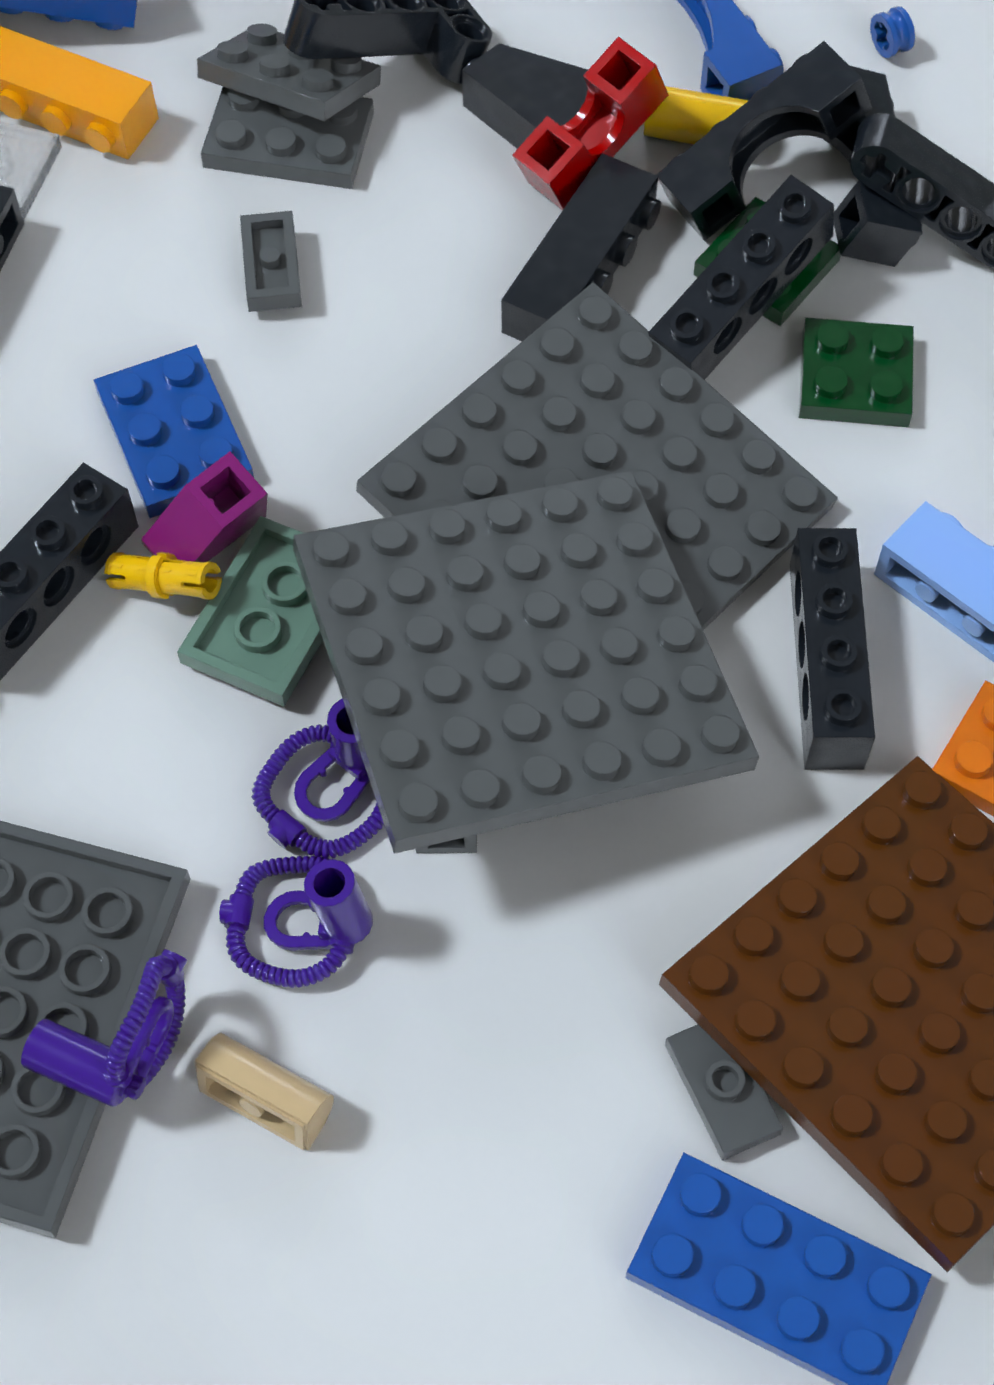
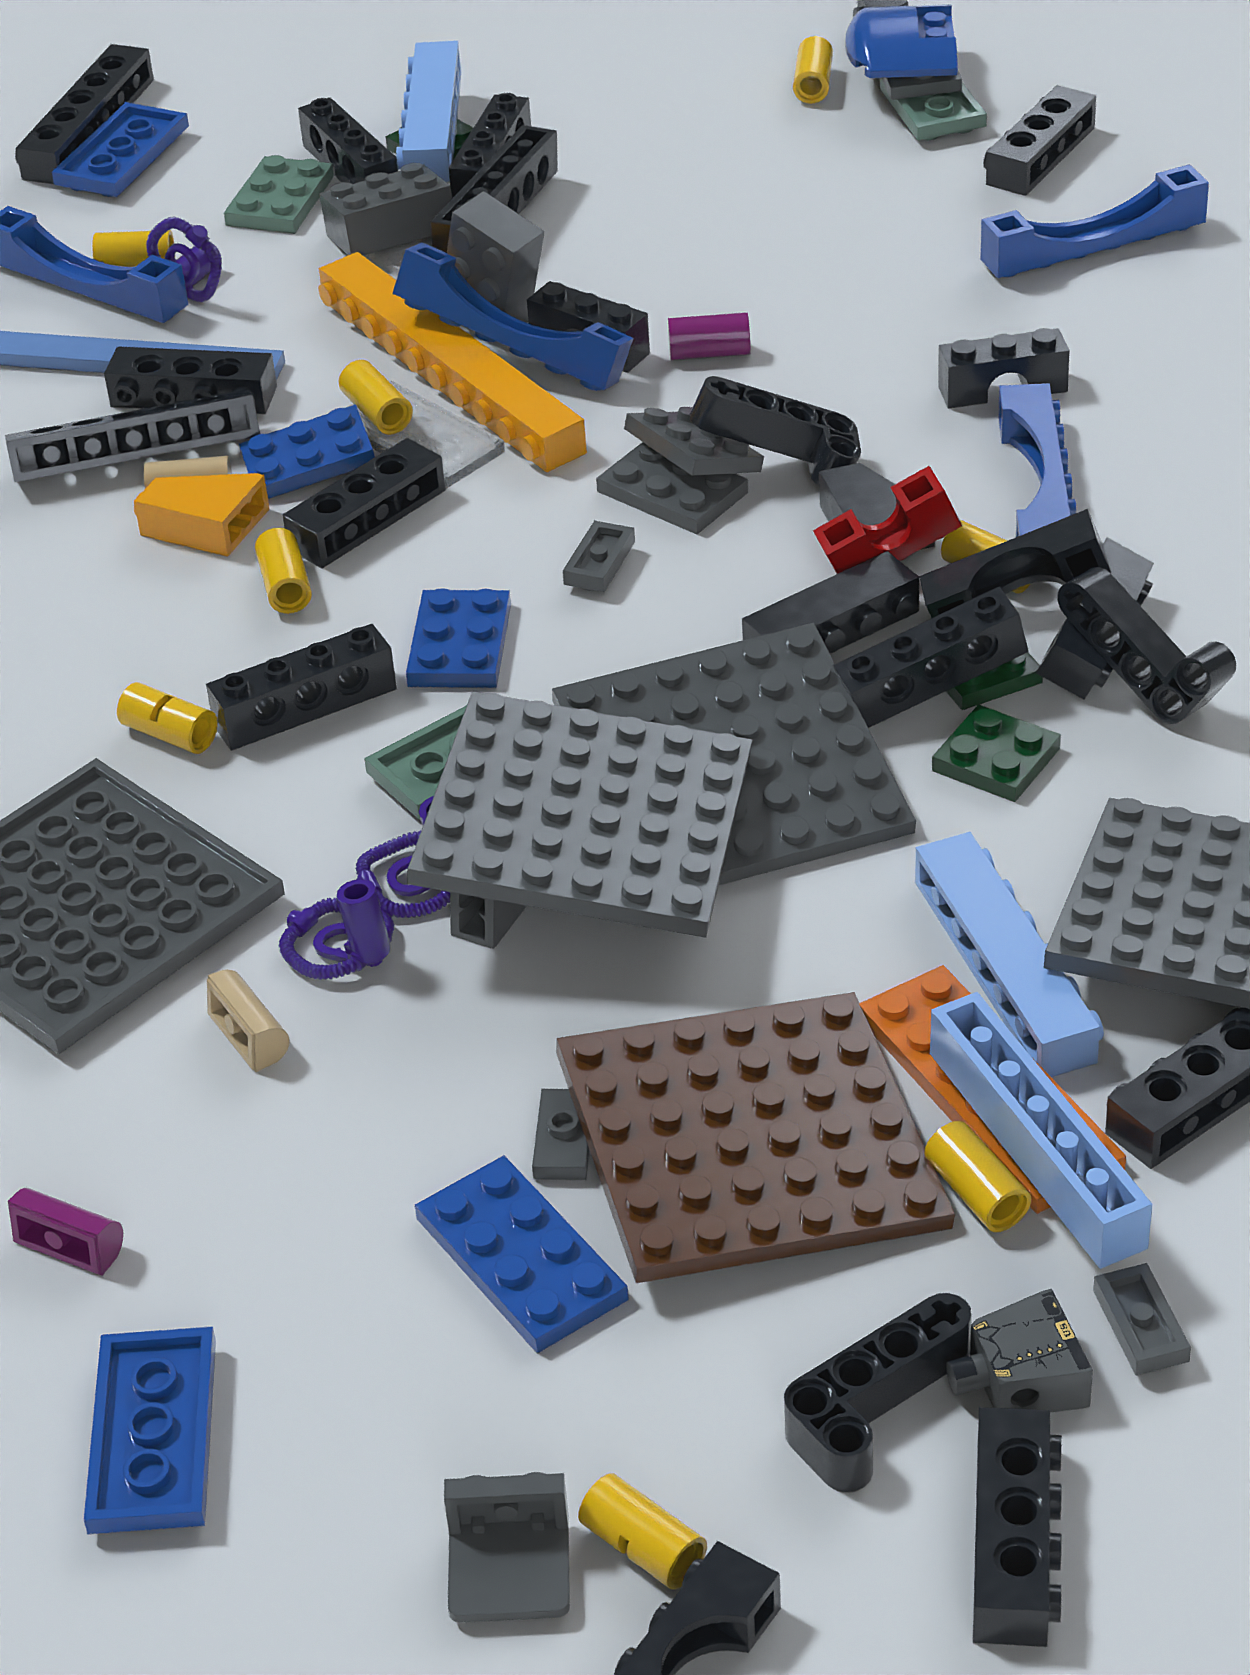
camera: 30 degrees right, 20 degrees down
(134, 1056) = (148, 958): dark purple piece -> none
(163, 575) = (386, 712): yellow pin -> none
(209, 513) = (436, 685): magenta slope -> none
(831, 650) = (833, 904): black brick -> none
(892, 32) = (1193, 544): blue bush -> none

